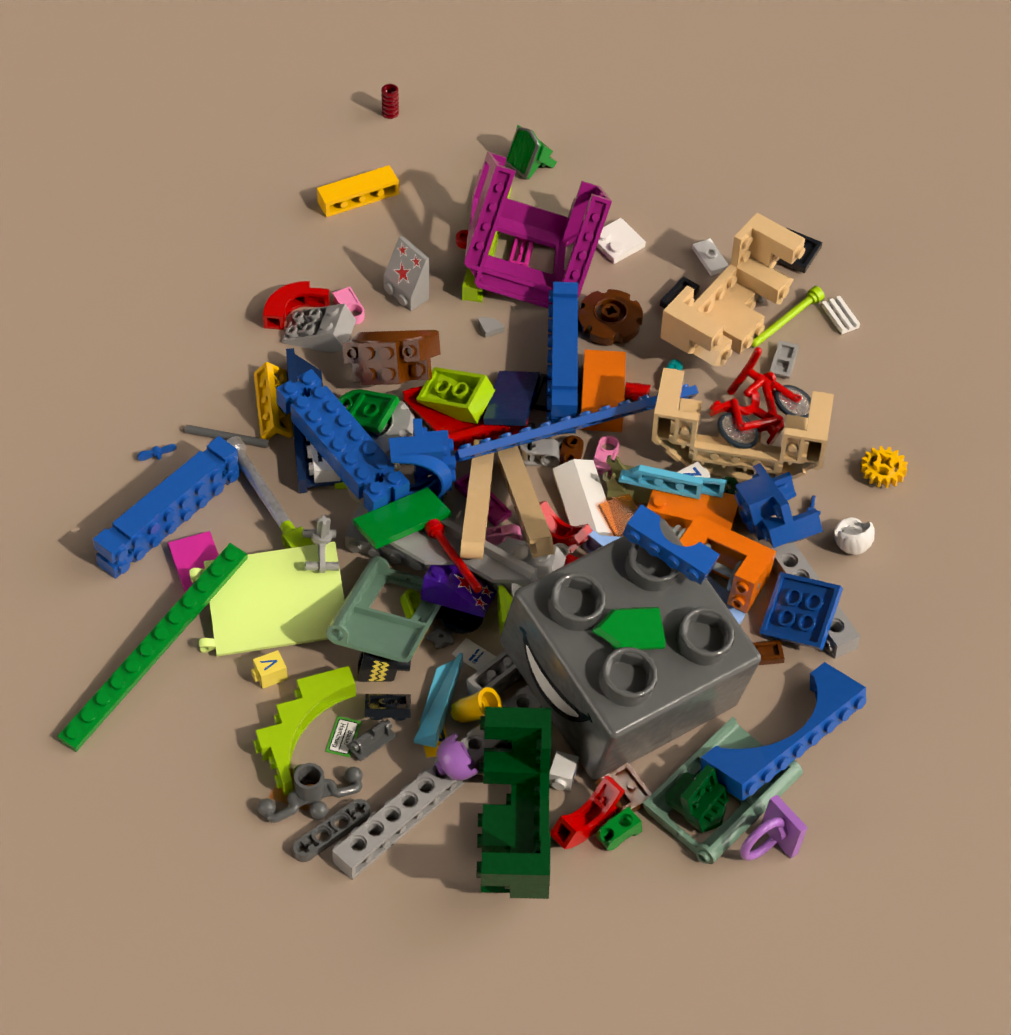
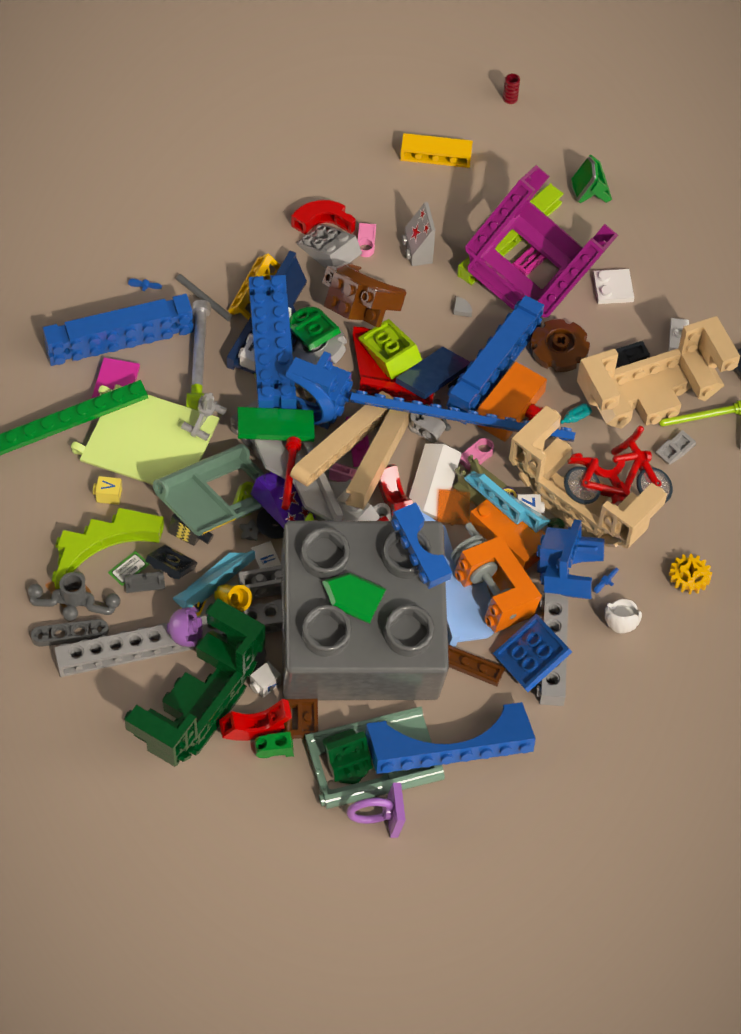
camera: 30 degrees right, 5 degrees up
(571, 449) = (452, 438): reddish brown plate -> none

